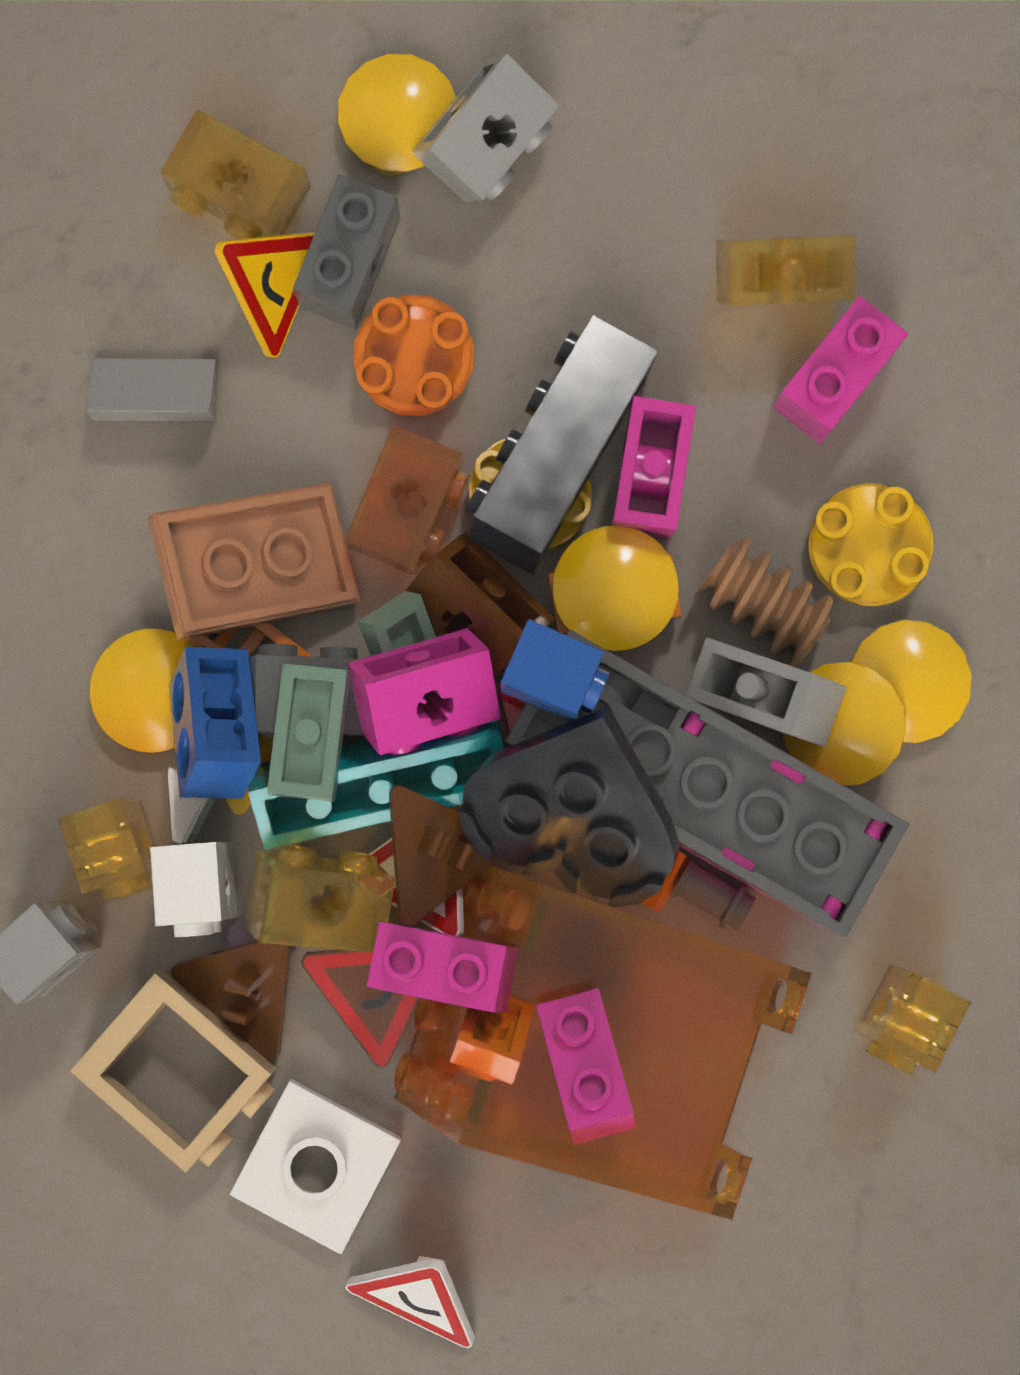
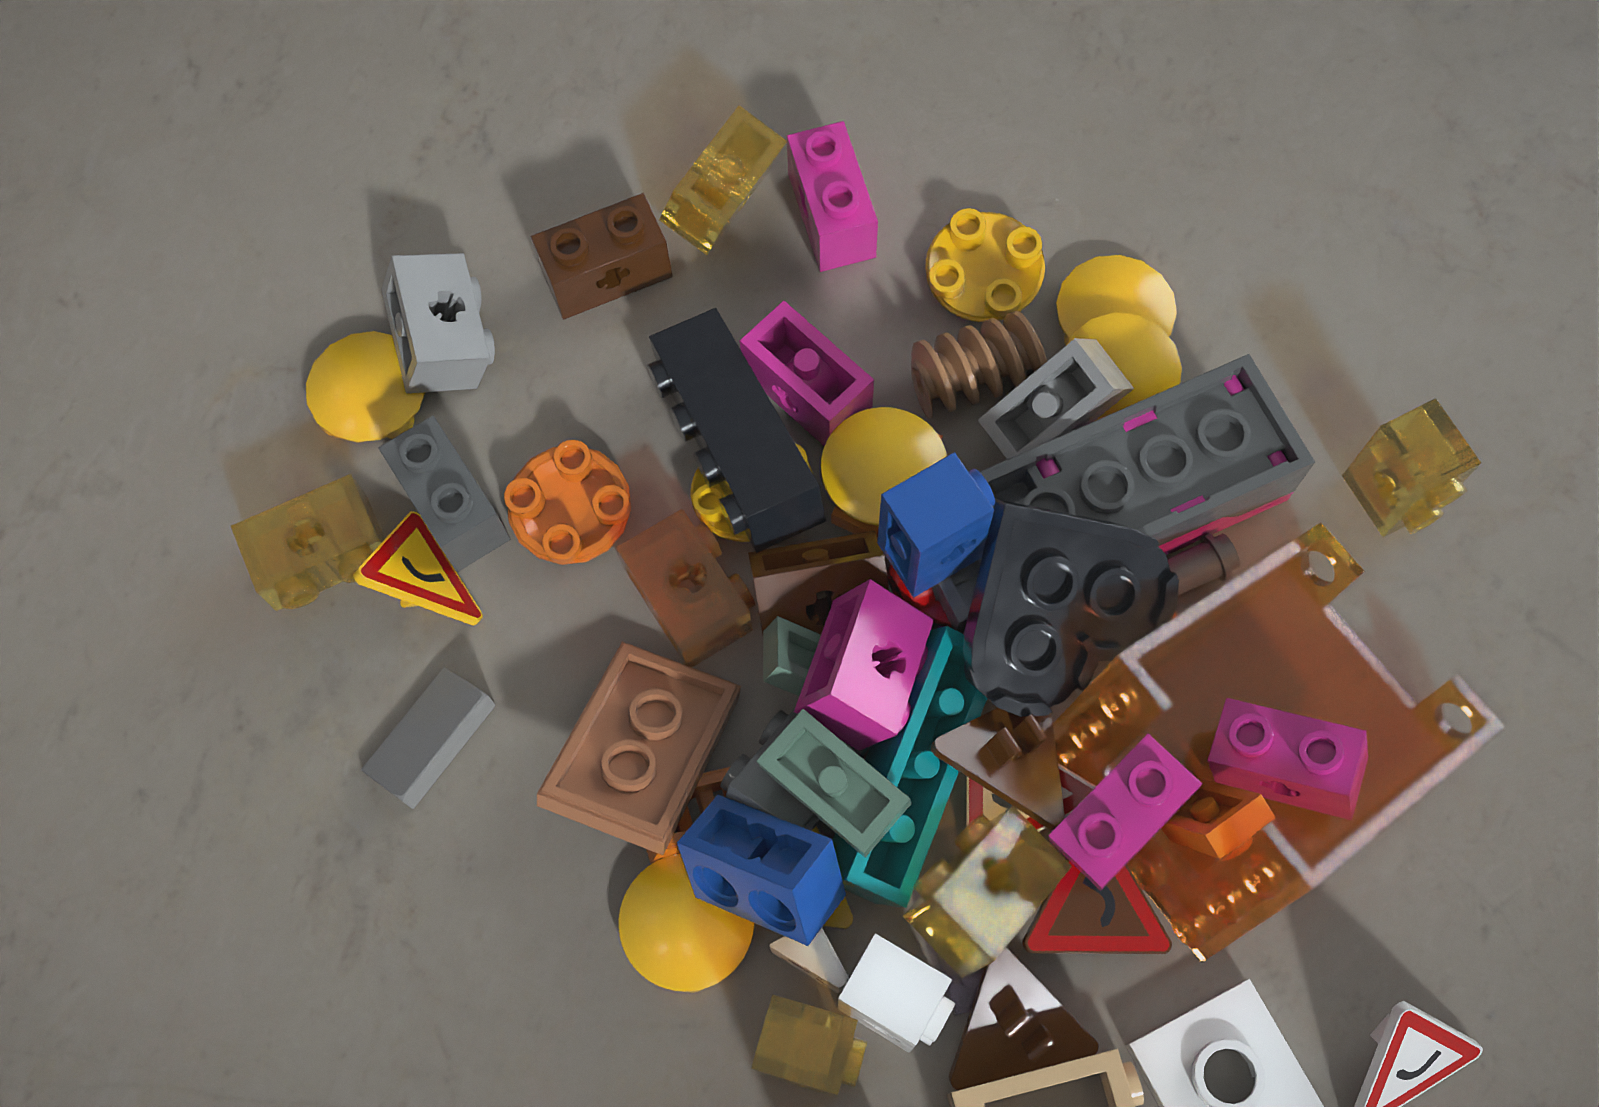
camera: 50 degrees left, 15 degrees down
(644, 218) = (603, 255): none -> reddish brown brick

